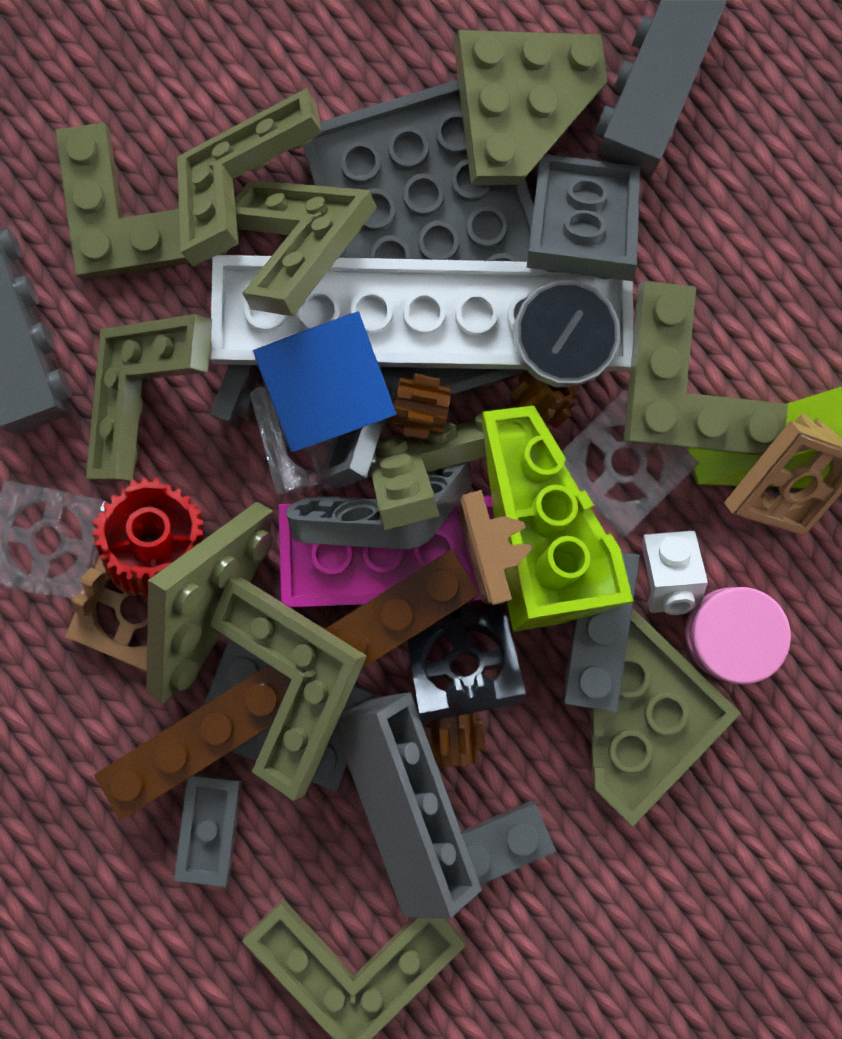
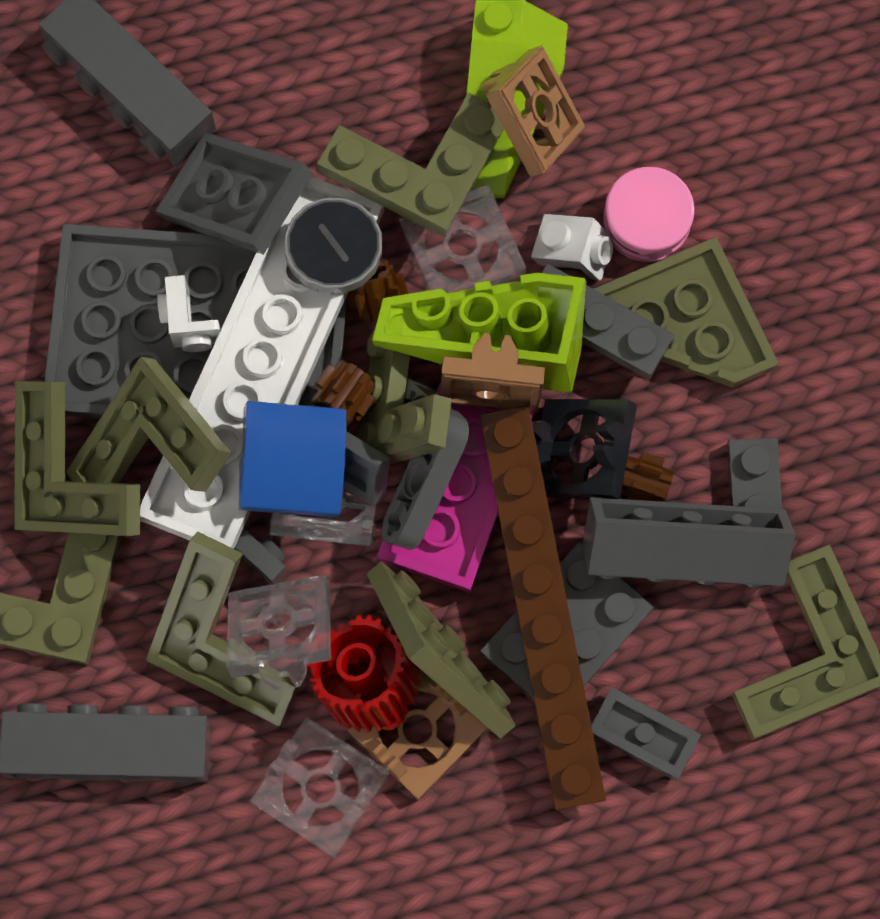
camera: 75 degrees left, 10 degrees down
(119, 451) = (272, 602): none -> clear piece
(321, 682) = (531, 558): olive plate -> none
(436, 213) = (176, 311): none -> white bracket
(522, 96) = (101, 204): olive plate -> none

